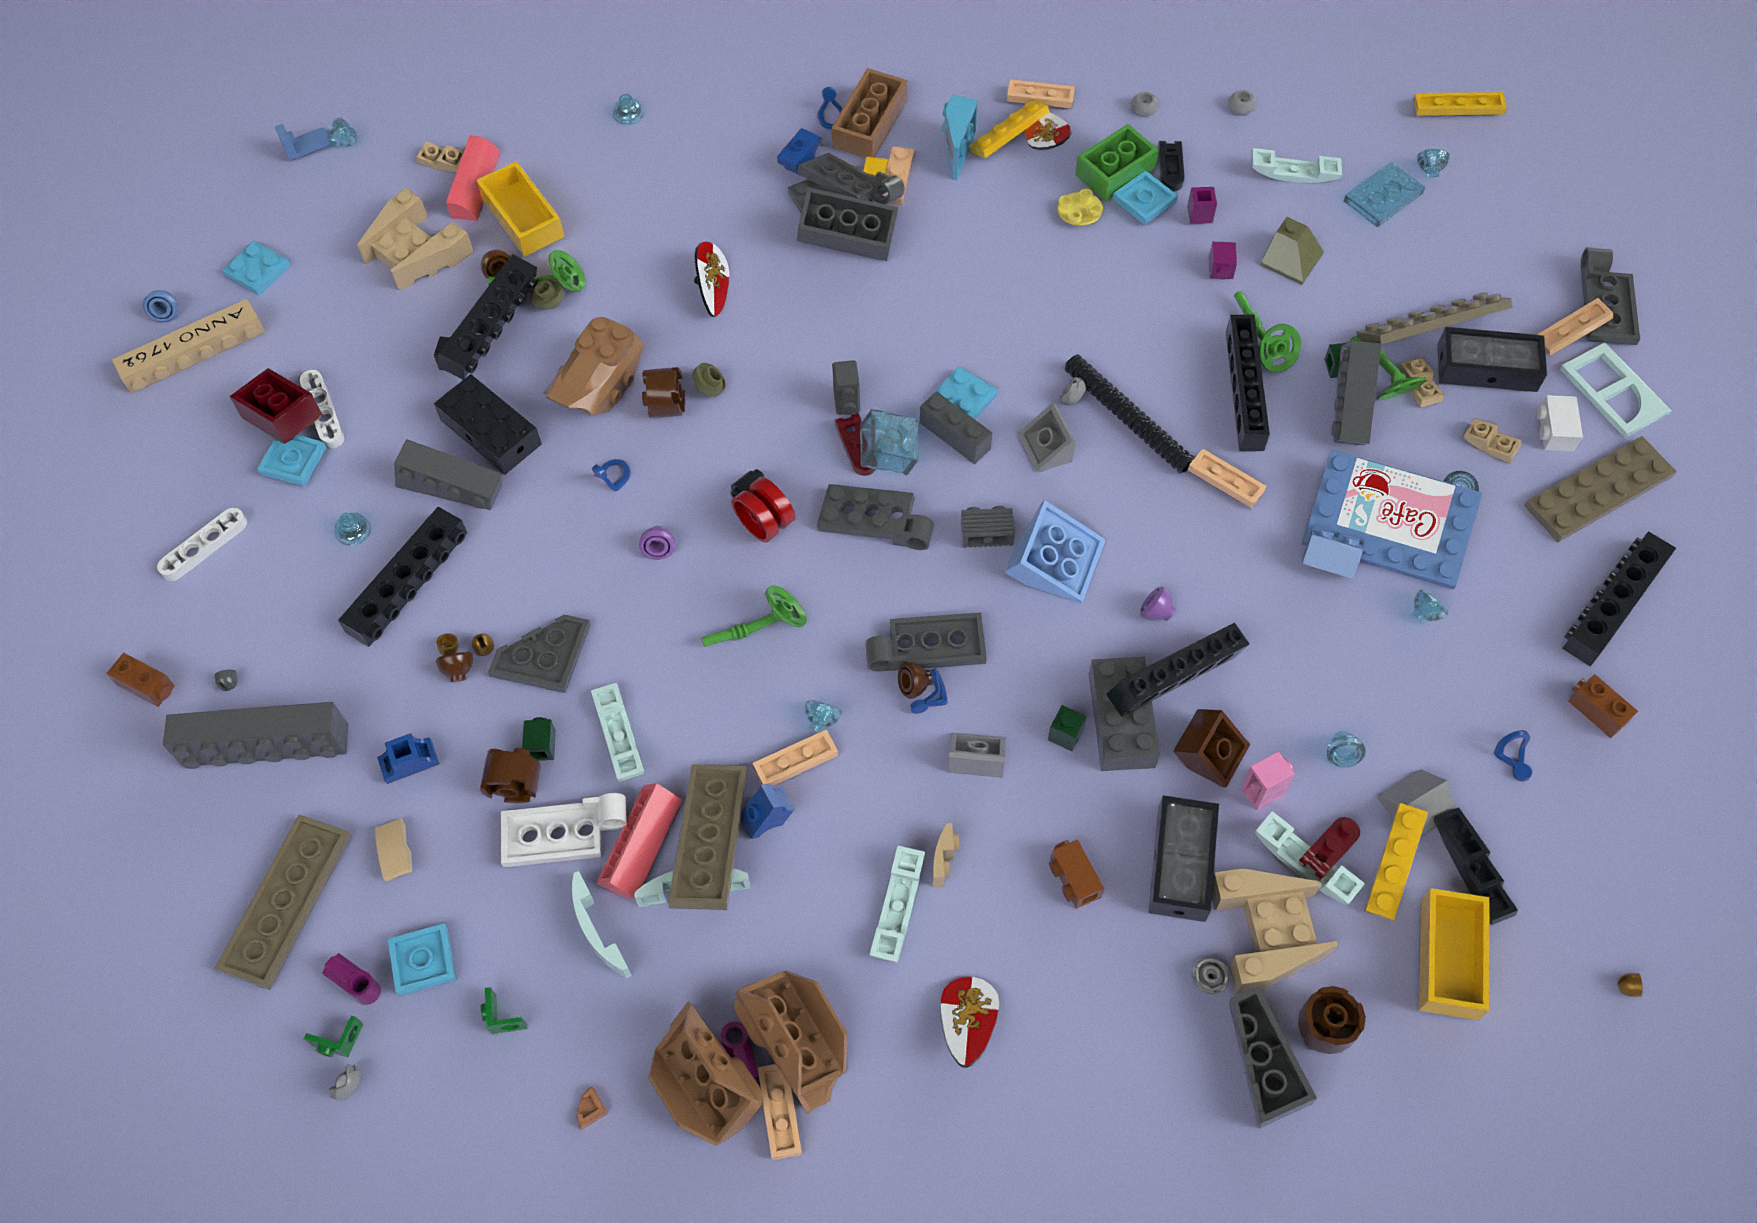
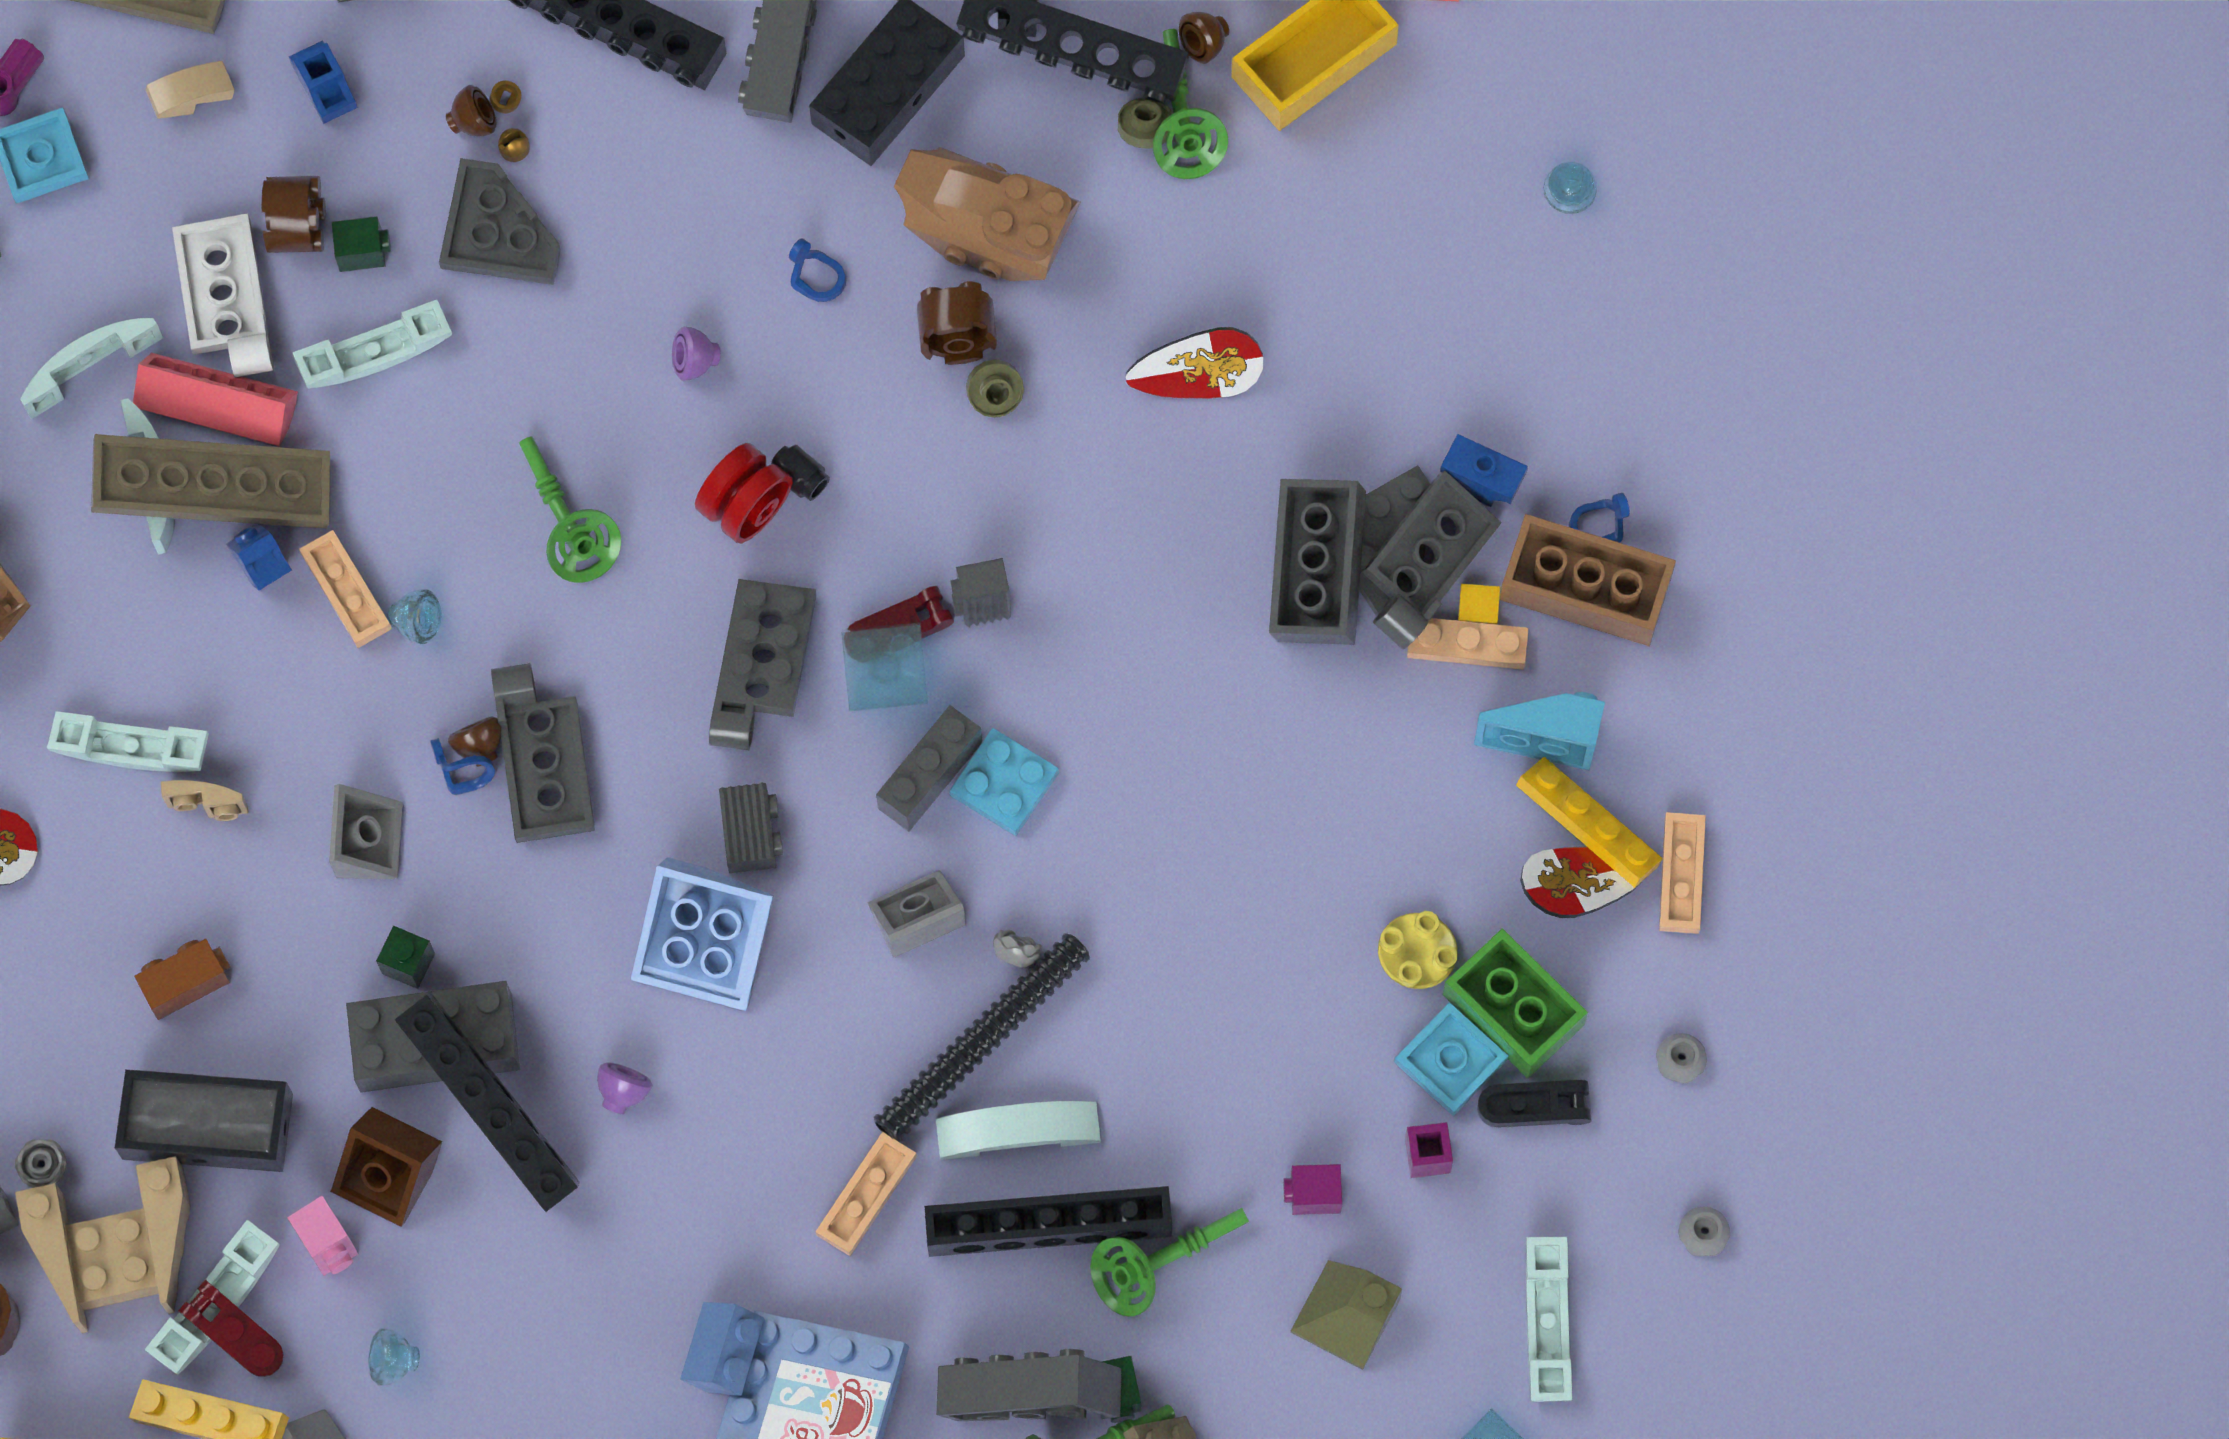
camera: 85 degrees right, 10 degrees up
(1186, 403) = (1017, 1126): none -> light aqua slope

